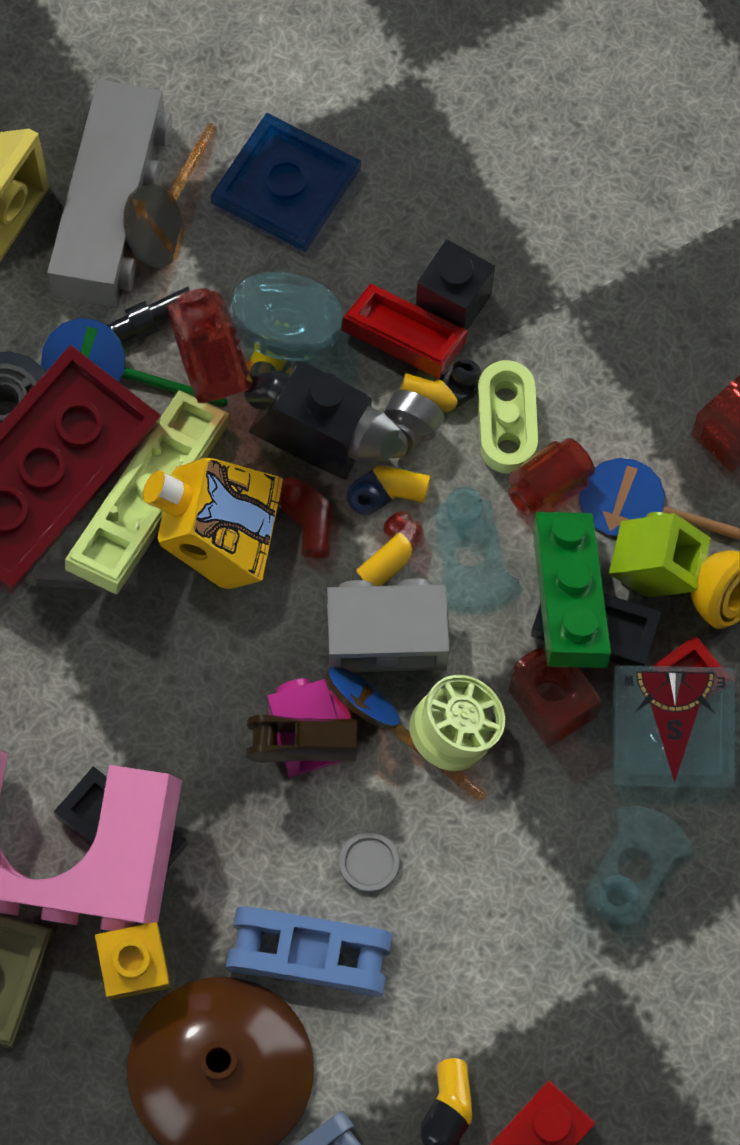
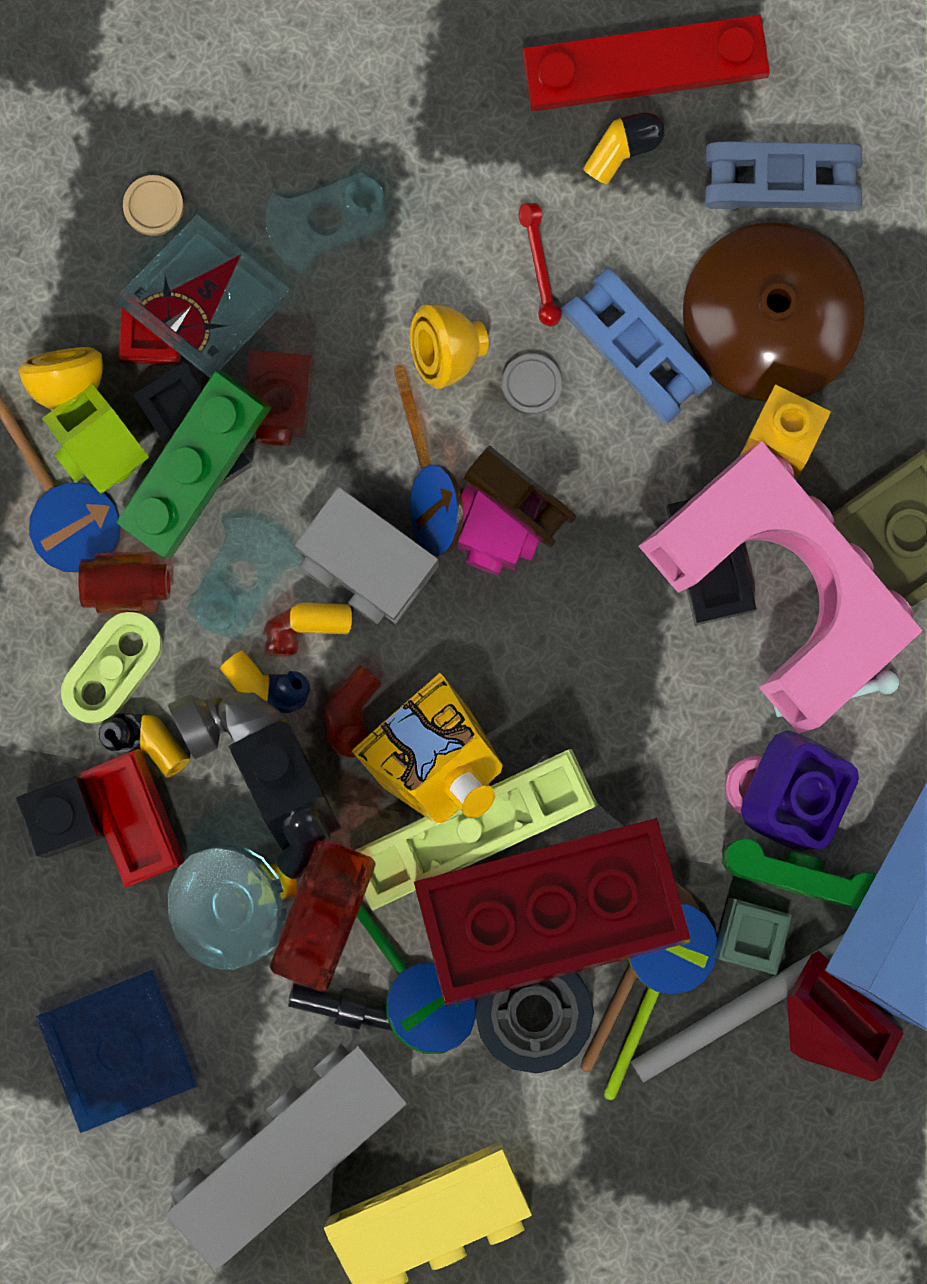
camera: 140 degrees left, 15 degrees up
(153, 217) = (262, 1098): piece -> none
(454, 723) = (378, 432): yellowish green wheel -> none
(457, 834) = (445, 344): none -> yellow brick
(474, 990) = (530, 217): none -> red hinge

